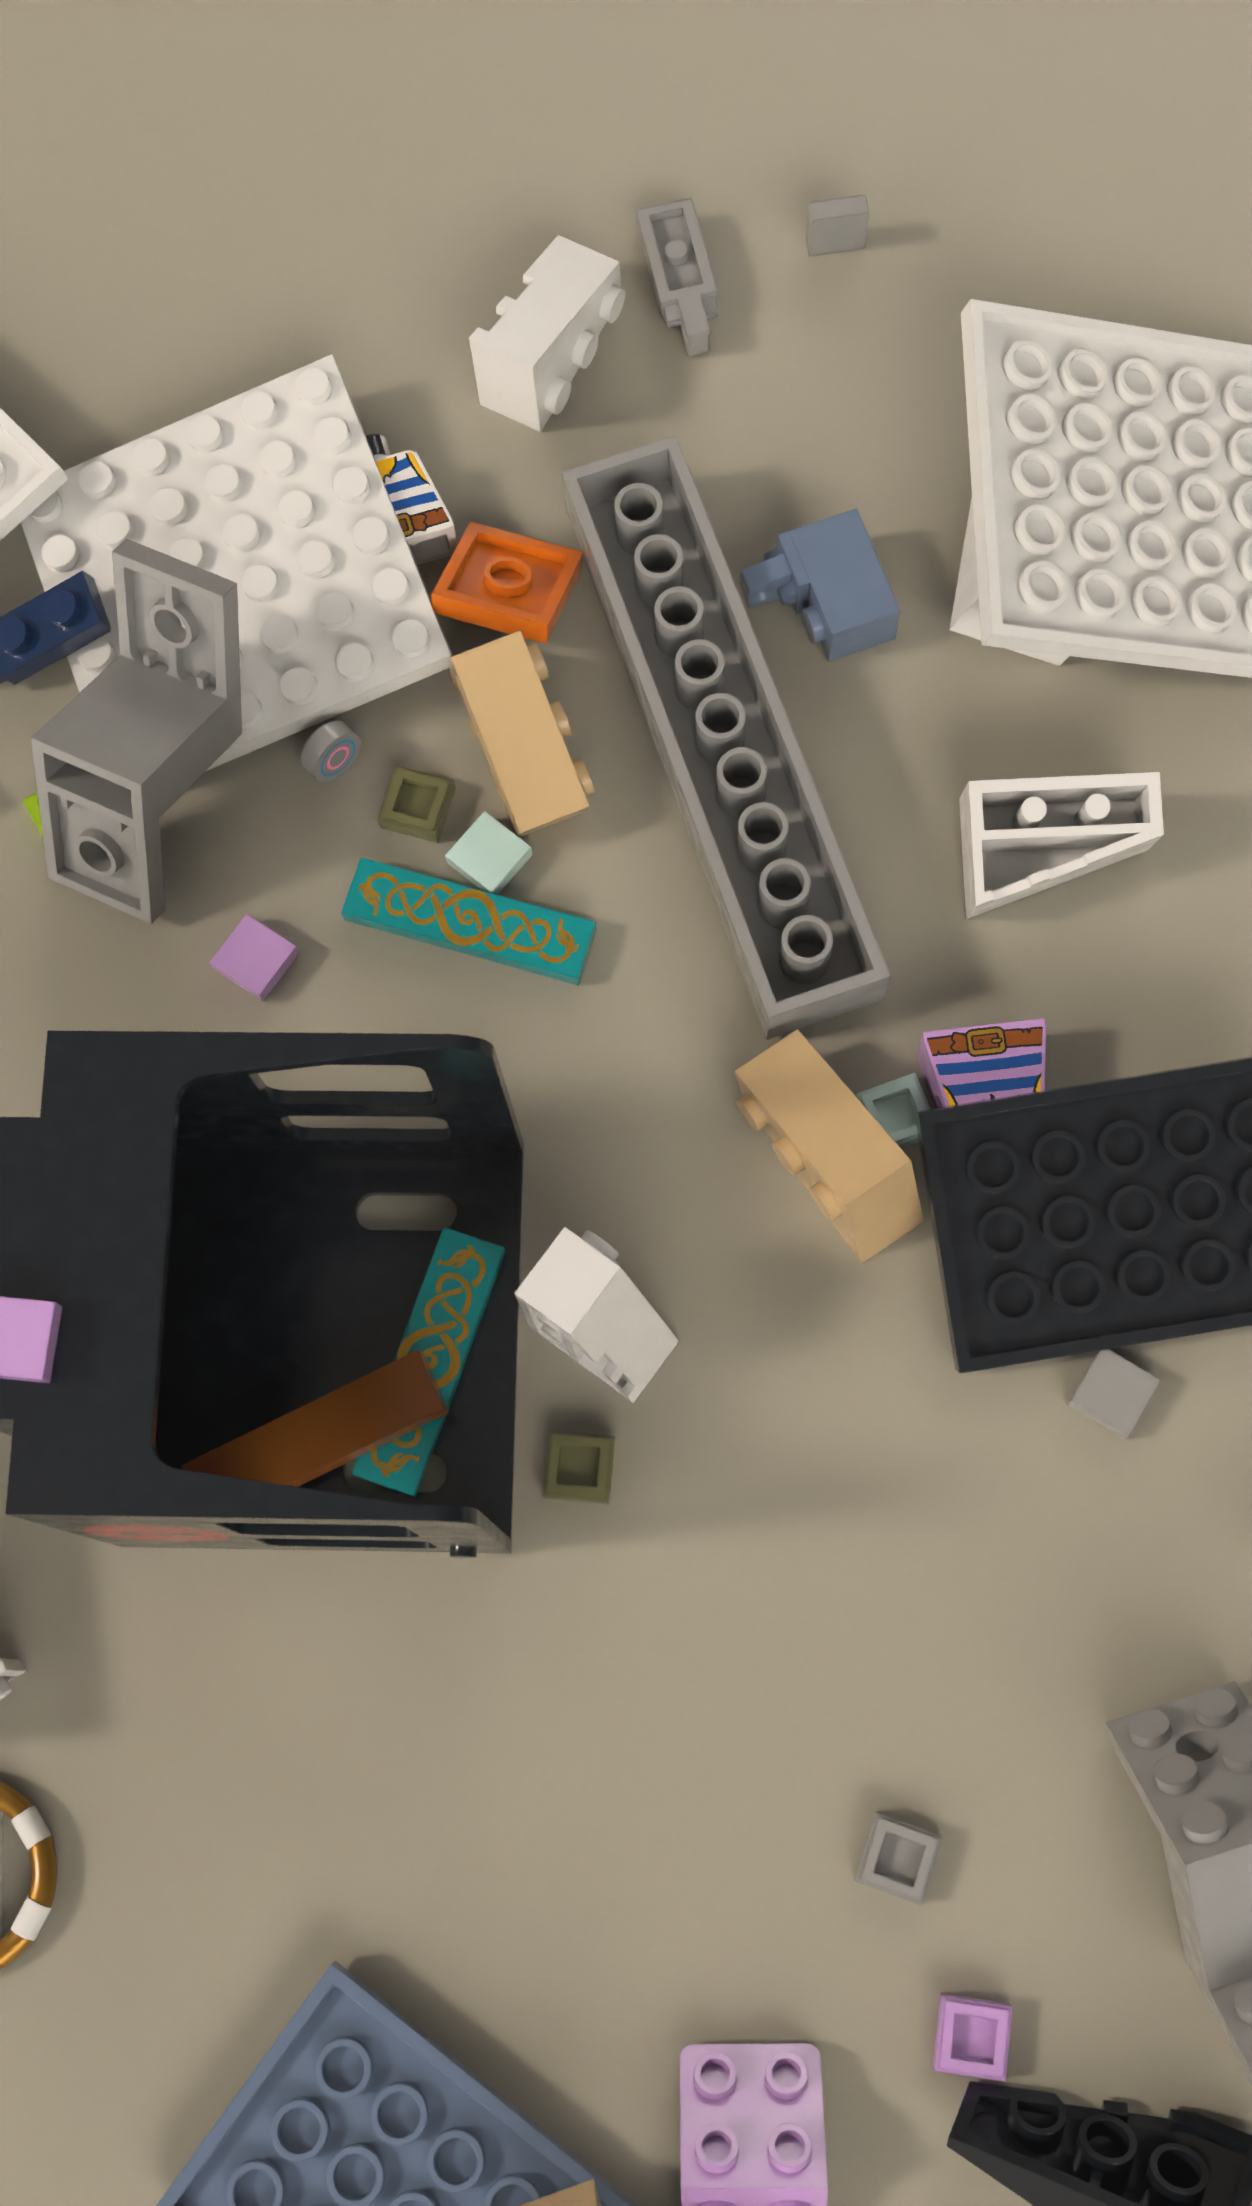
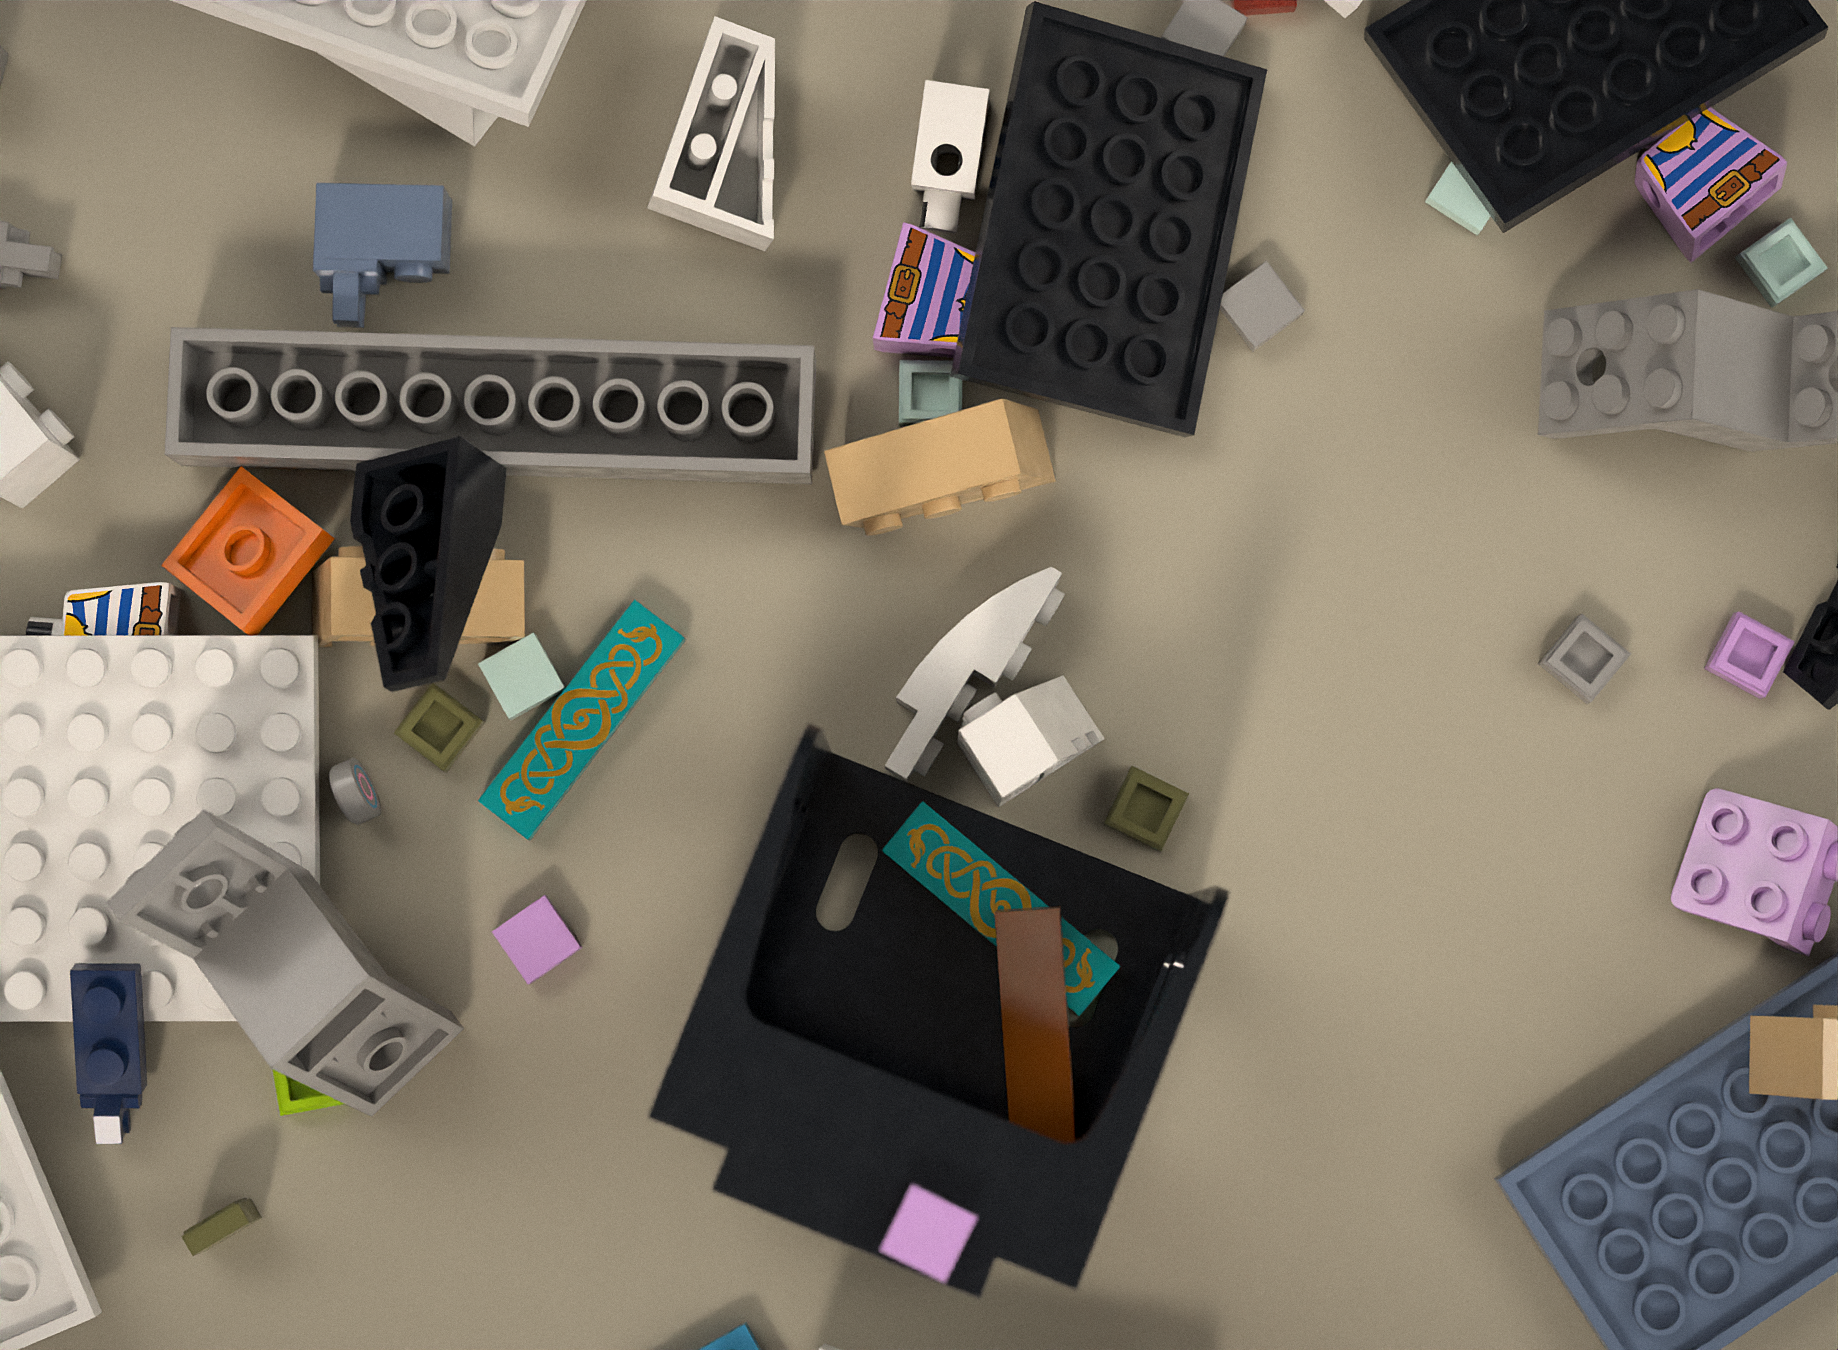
camera: 75 degrees left, 10 degrees up
(577, 703) = (426, 543): none -> black wedge
(675, 1247) = (980, 645): none -> white slope
(1154, 1020) = (954, 123): none -> white torso

